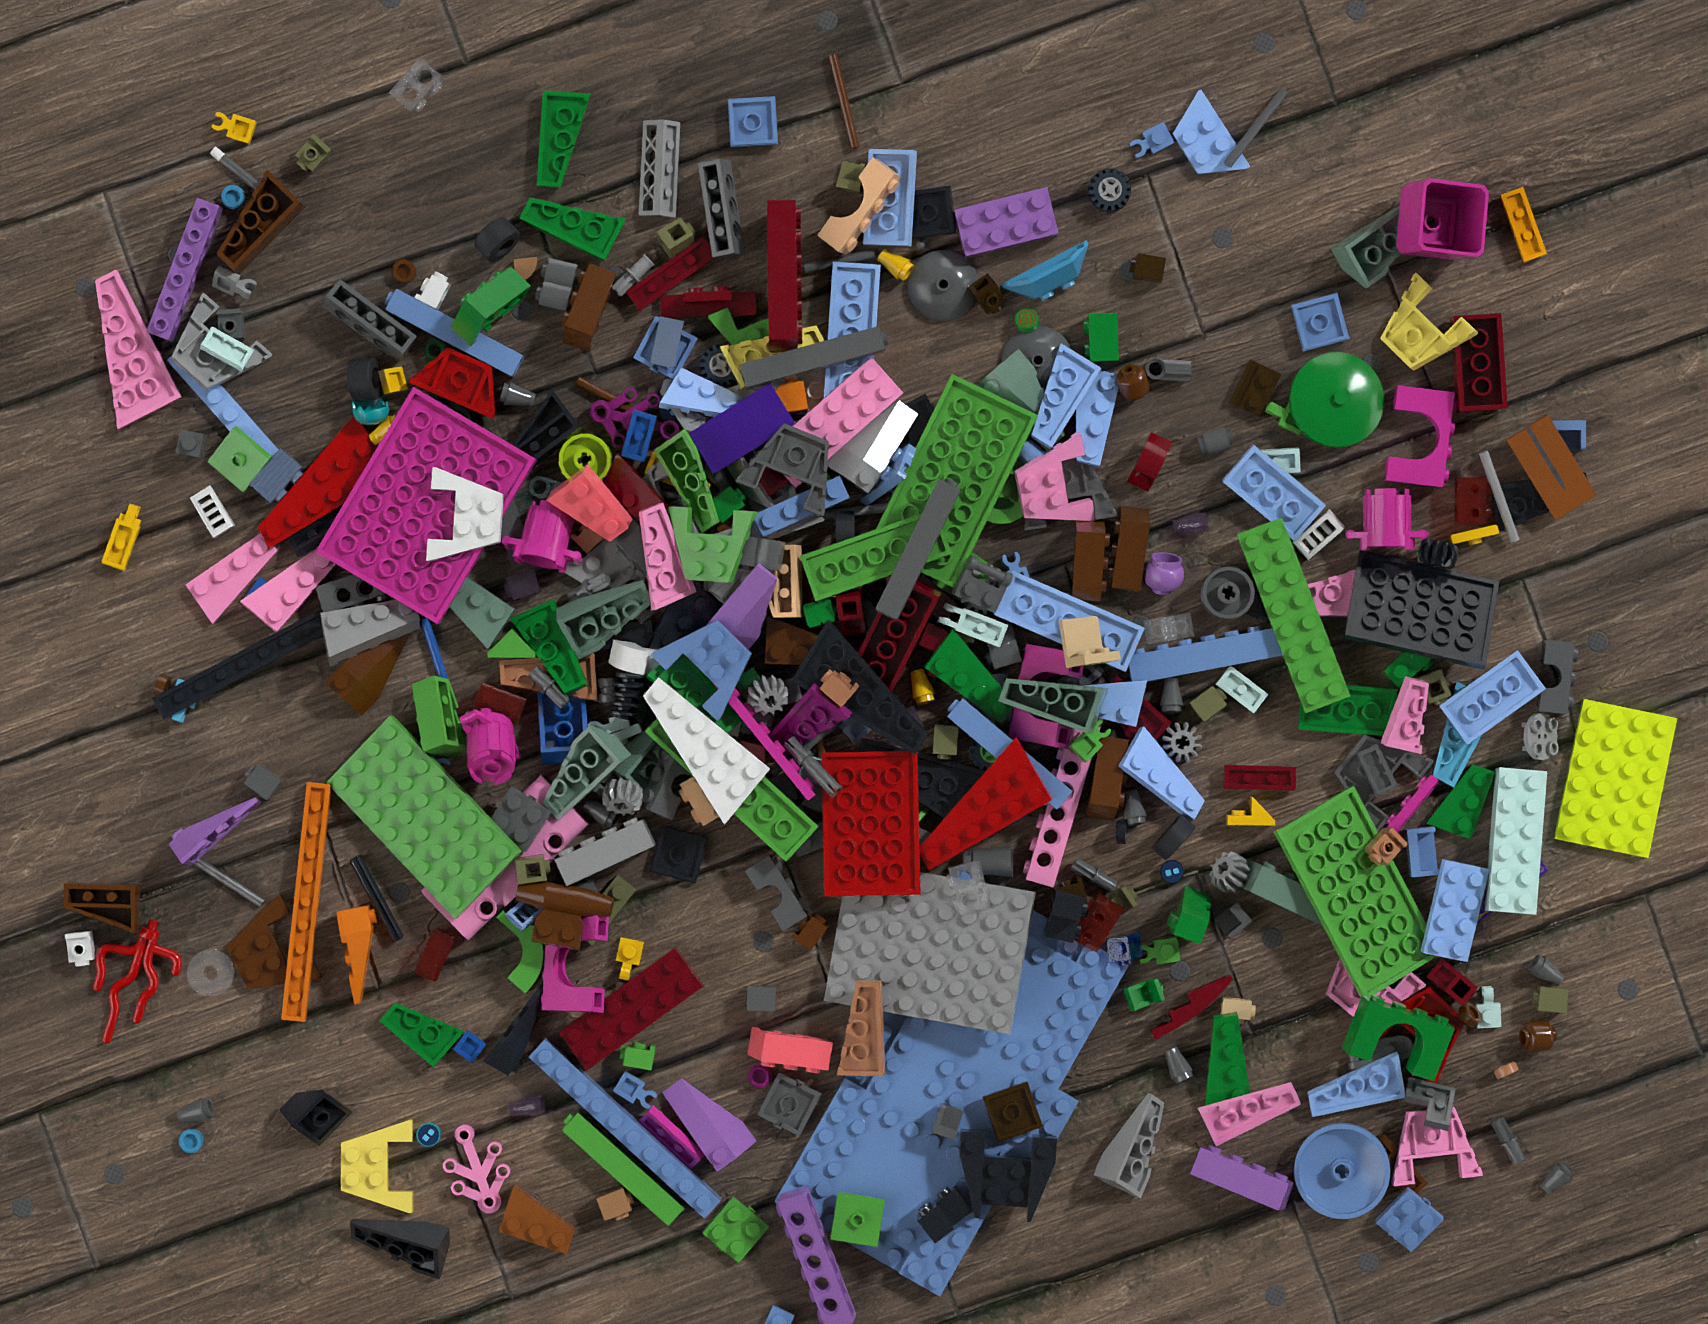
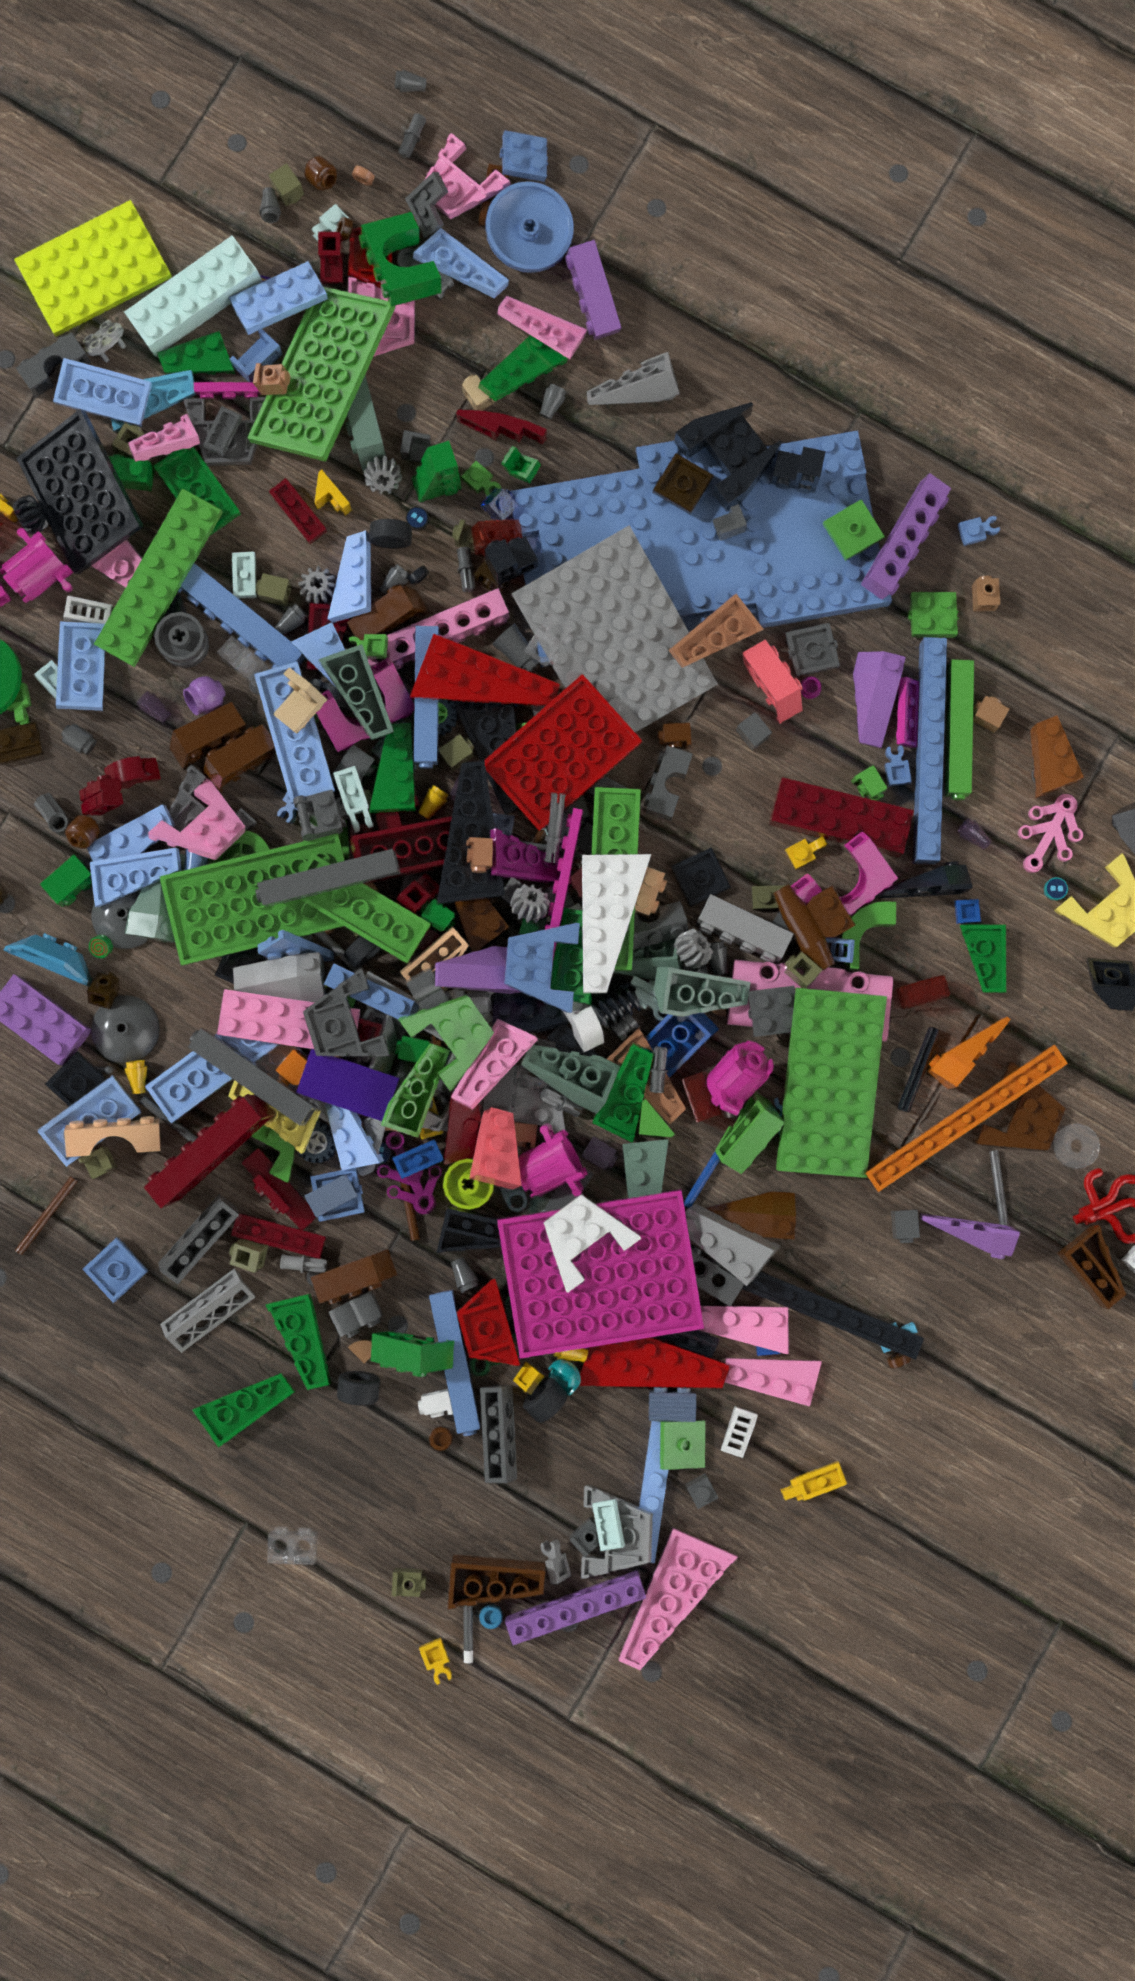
camera: 130 degrees left, 5 degrees down
(716, 1286) = (986, 594): none -> medium nougat brick
(1148, 421) = (101, 796): none -> dark red brick

